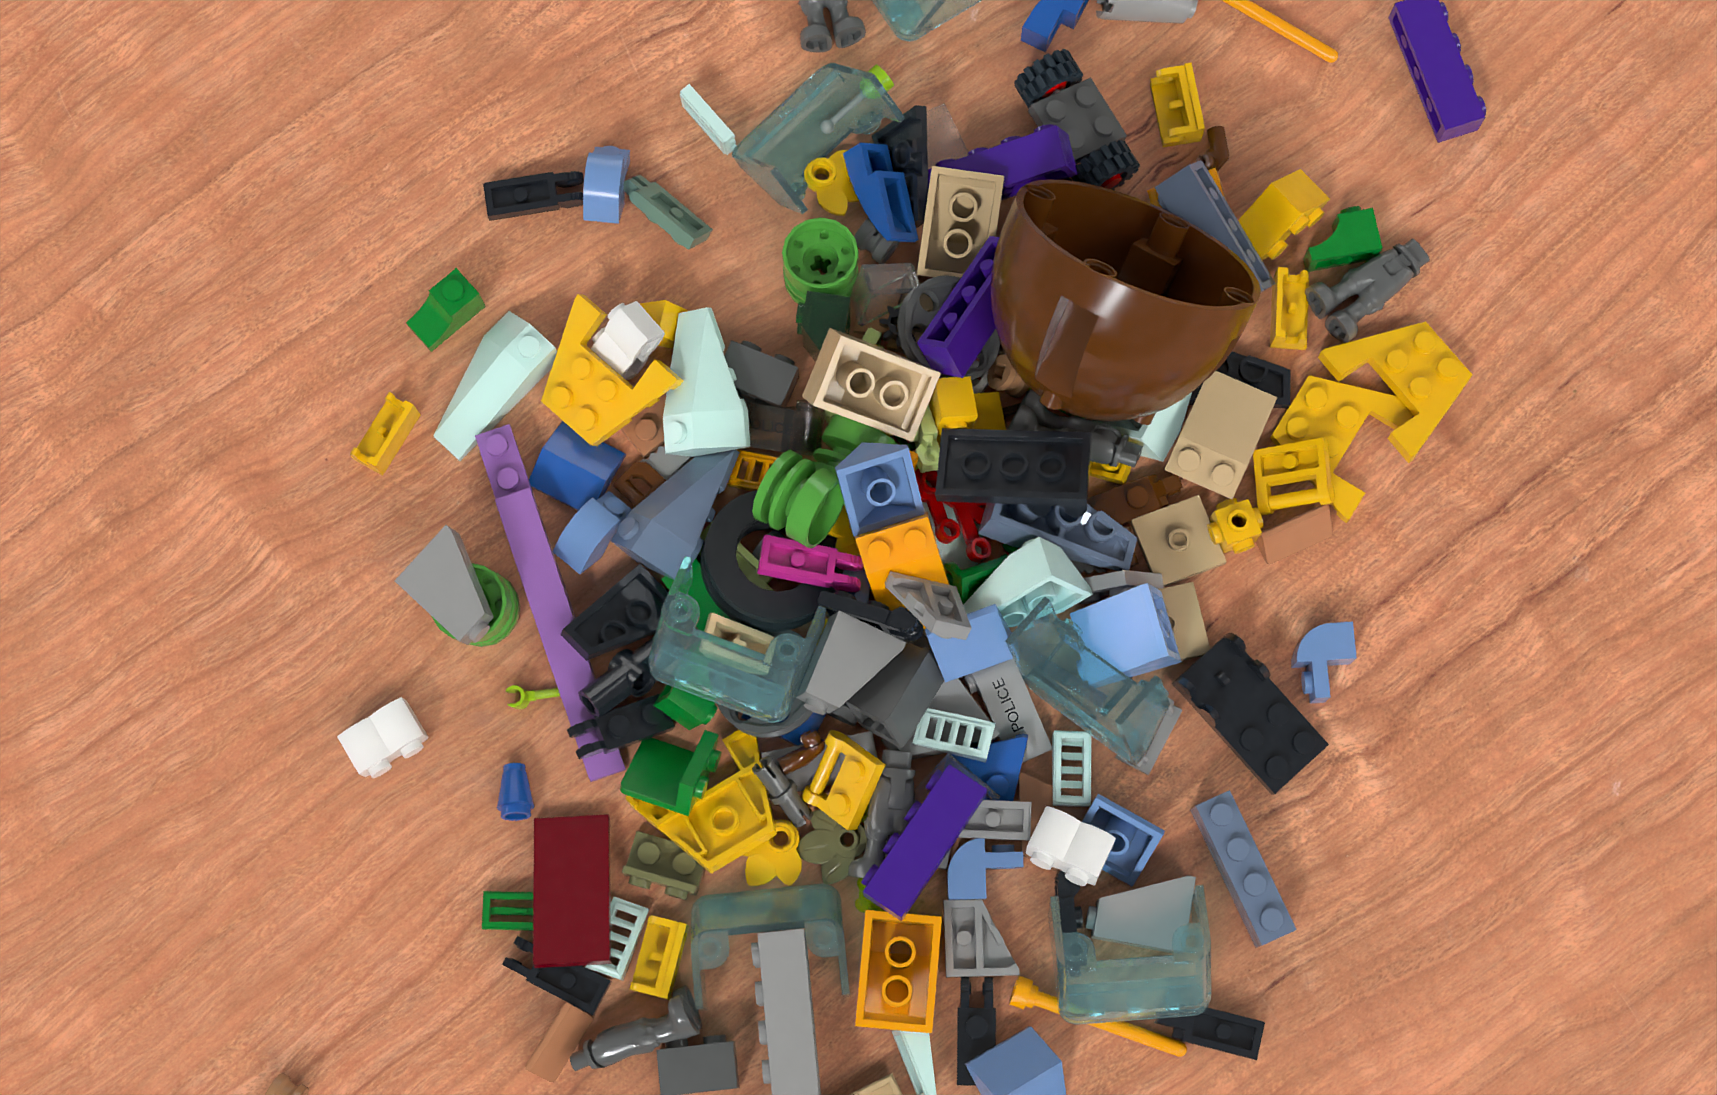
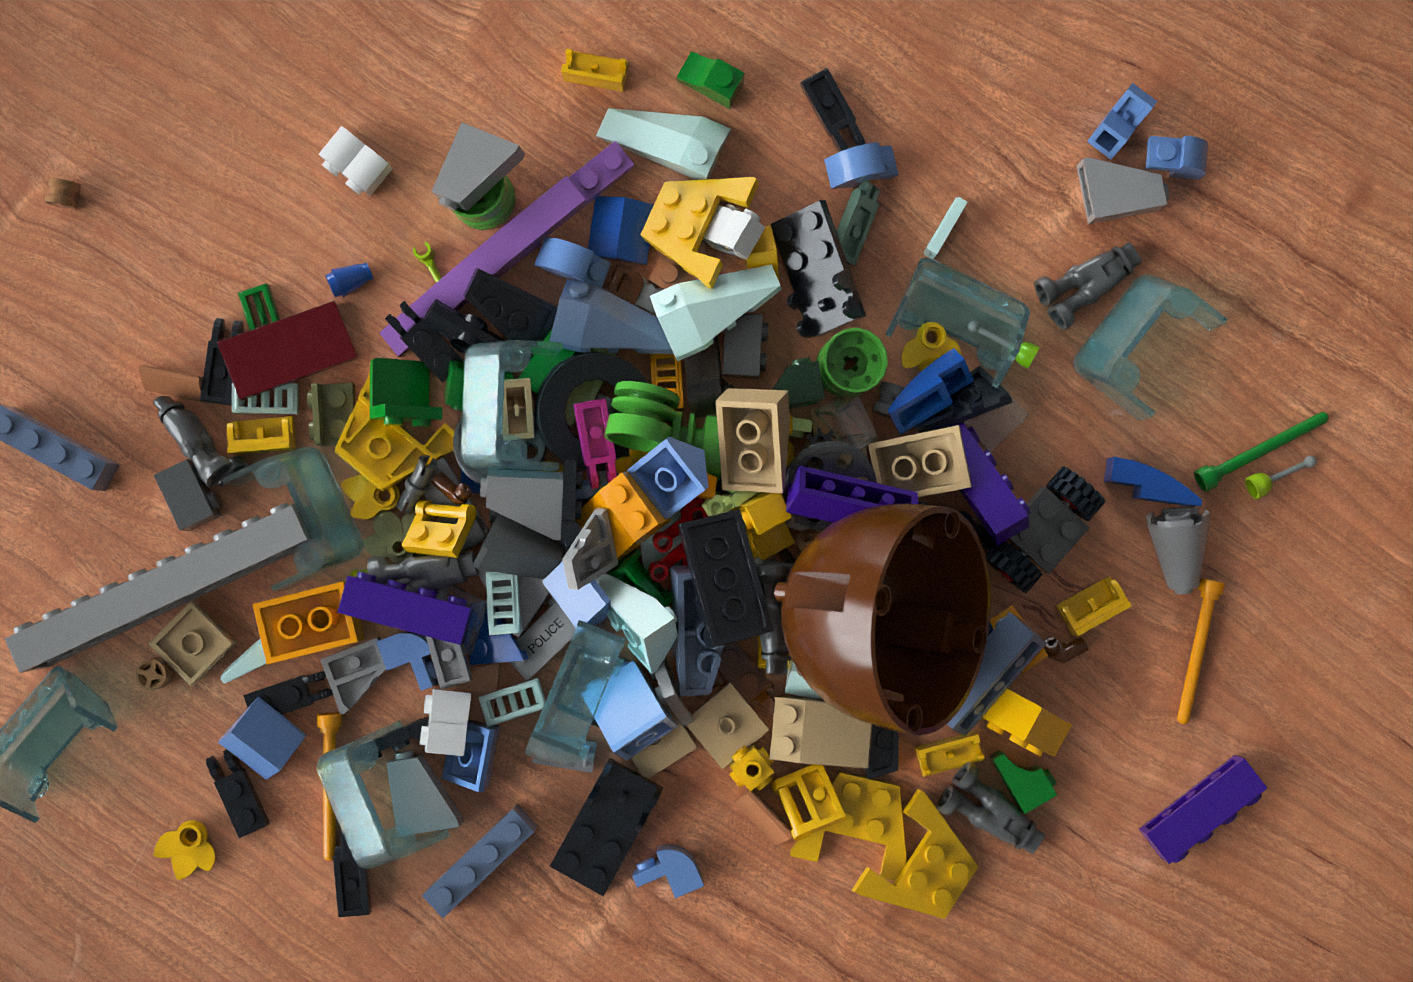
camera: 70 degrees right, 10 degrees up
(704, 267) = (817, 271): none -> black hinge

